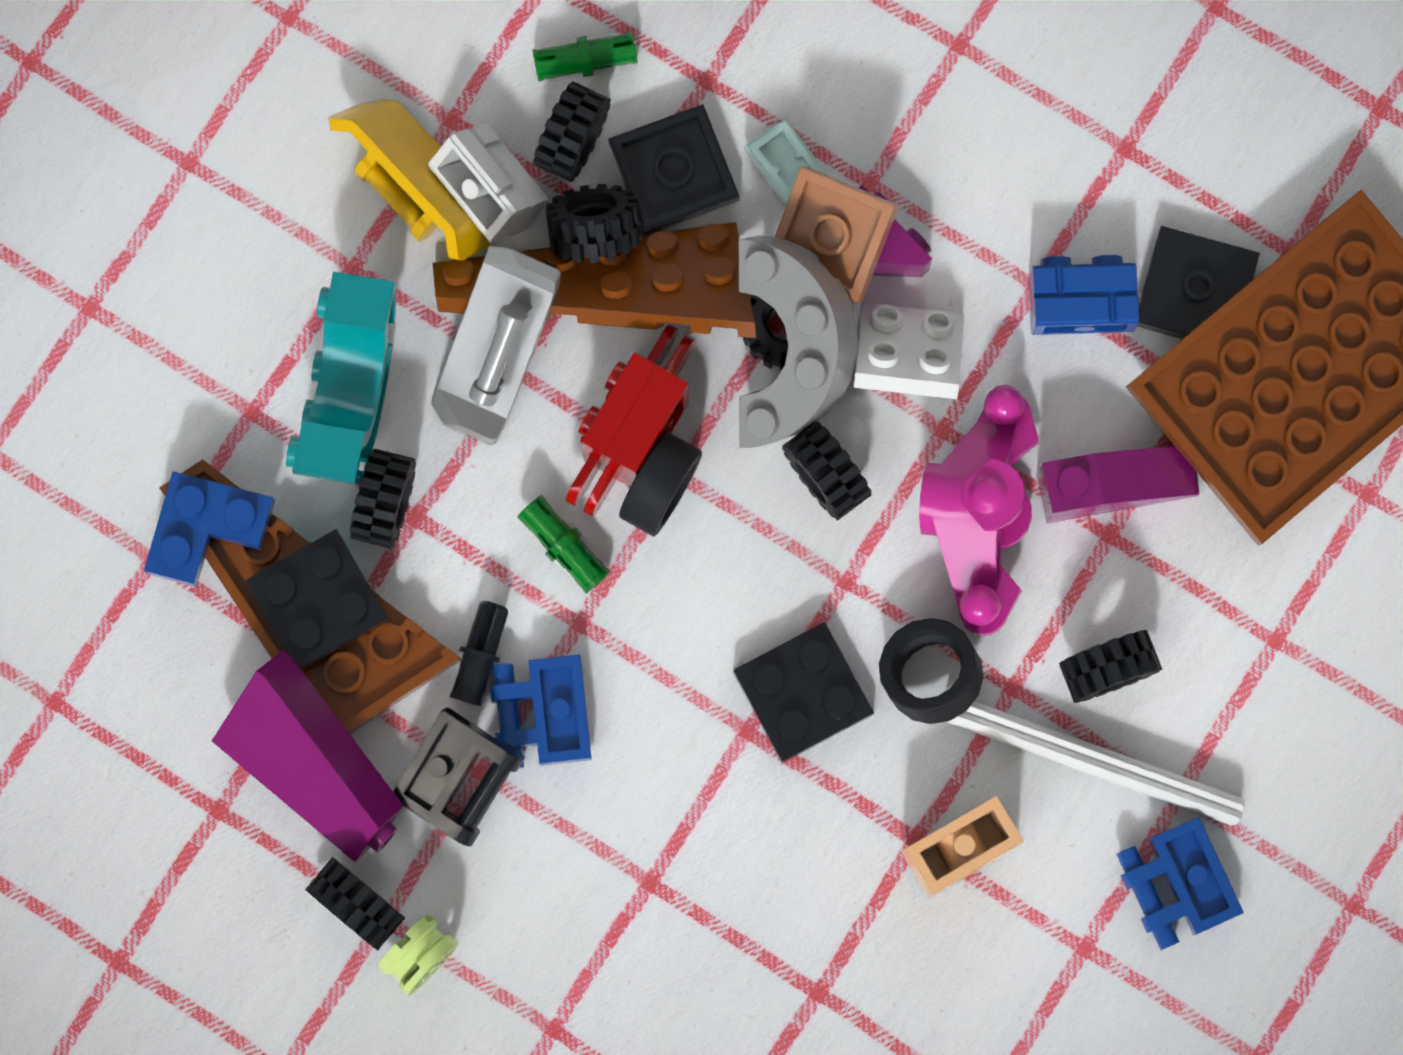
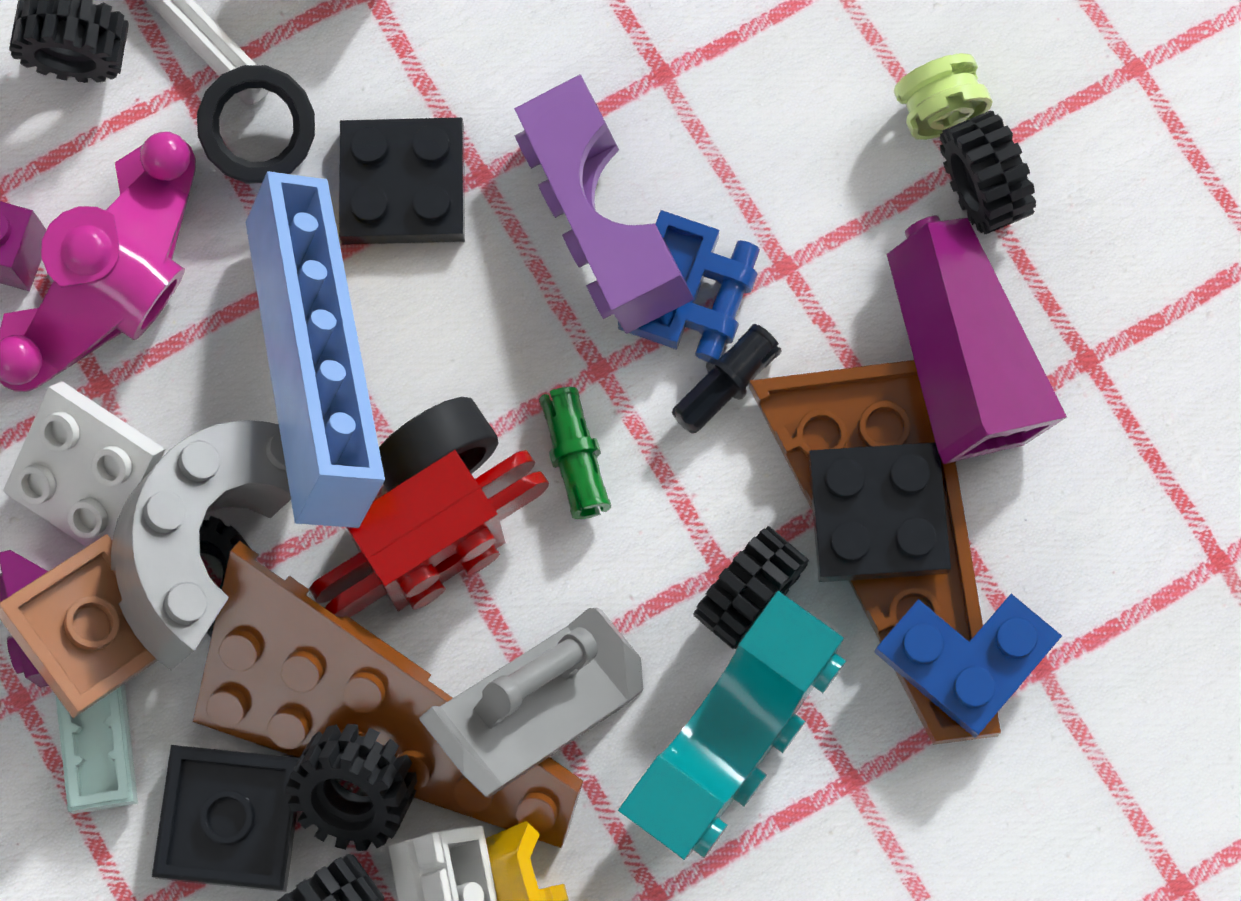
camera: 150 degrees left, 5 degrees down
(441, 769) = (822, 275): plate -> none
(686, 773) = (630, 262): none -> medium lavender arch
(781, 501) = (313, 353): none -> light blue brick
(826, 470) = (242, 372): black tyre -> none

